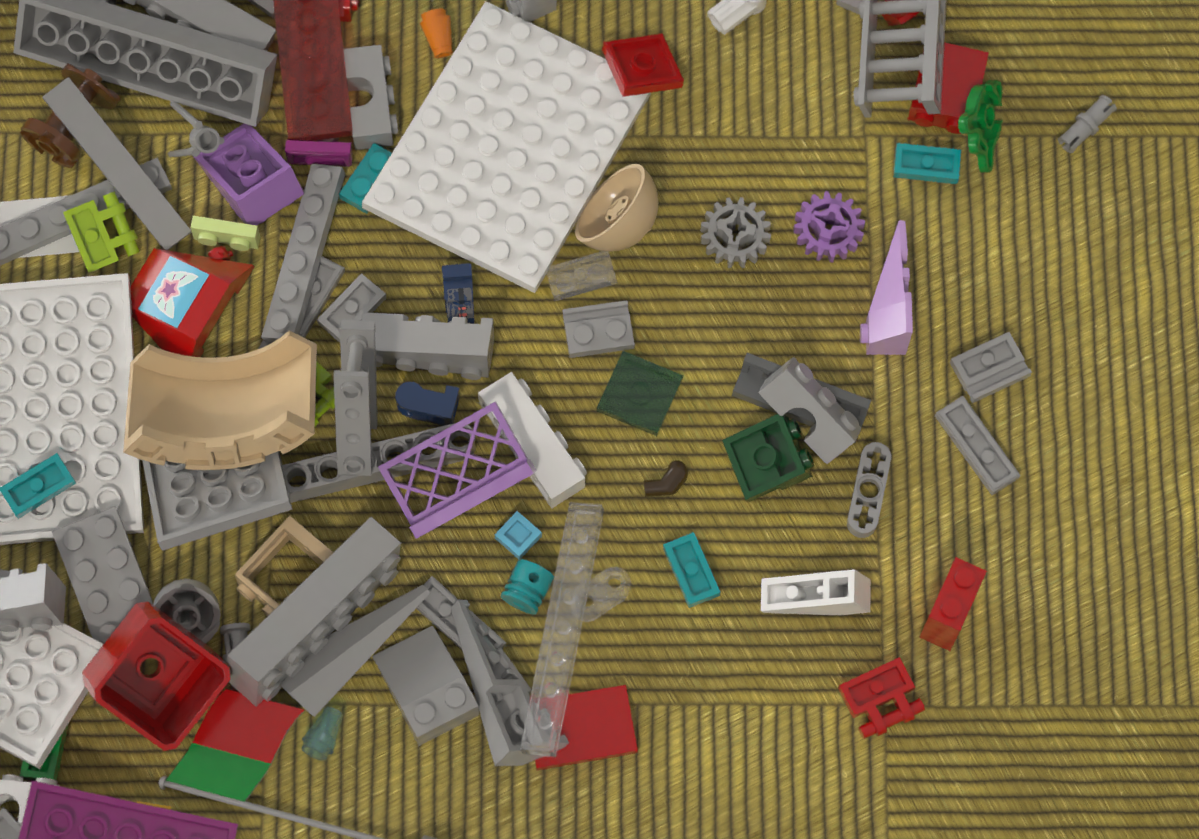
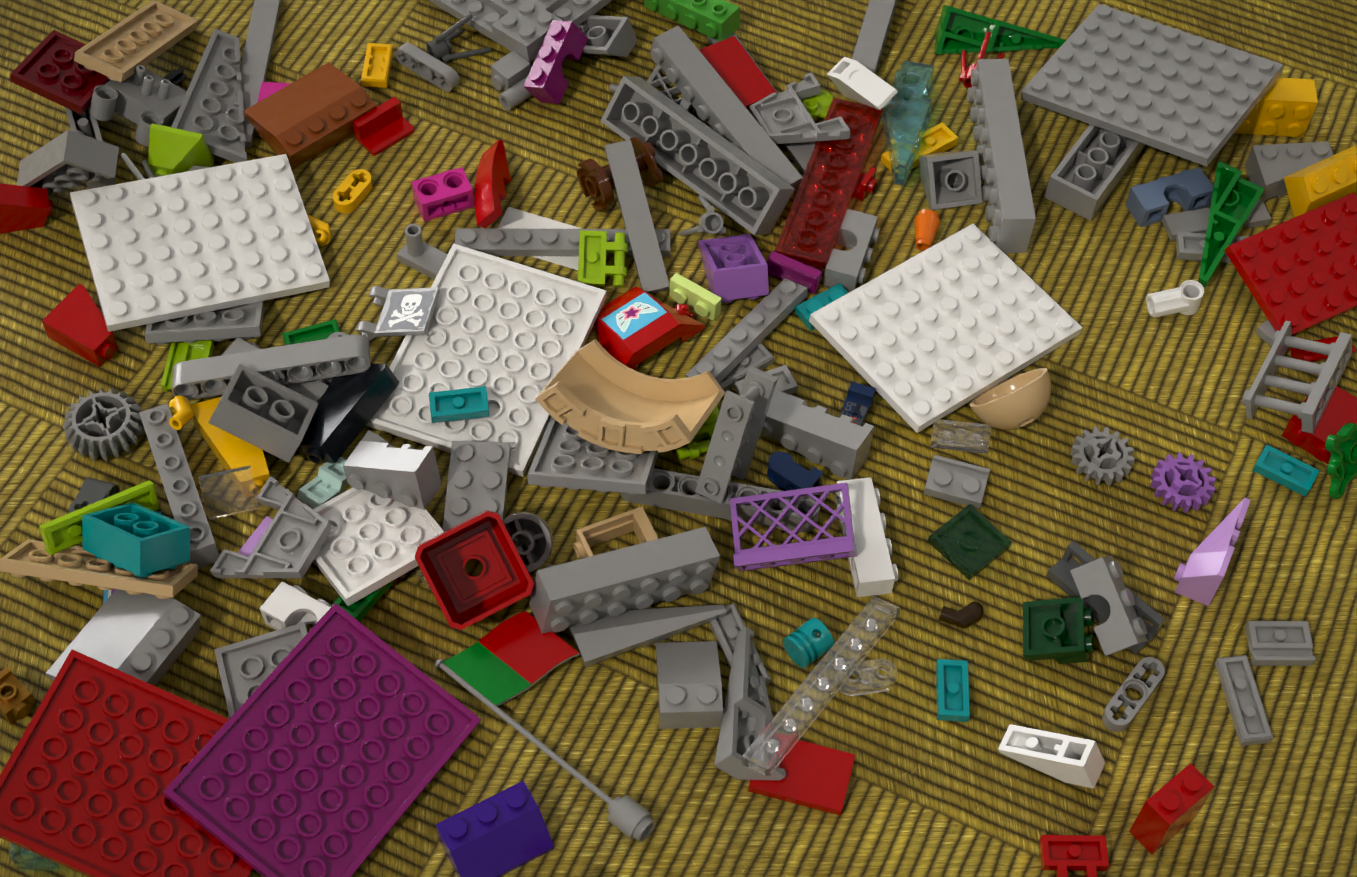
camera: 25 degrees right, 15 degrees down
(322, 735) = (585, 682): clear light blue cone -> none
(518, 535) = (819, 602): medium azure plate -> none
(642, 65) = (1078, 310): red tile -> none

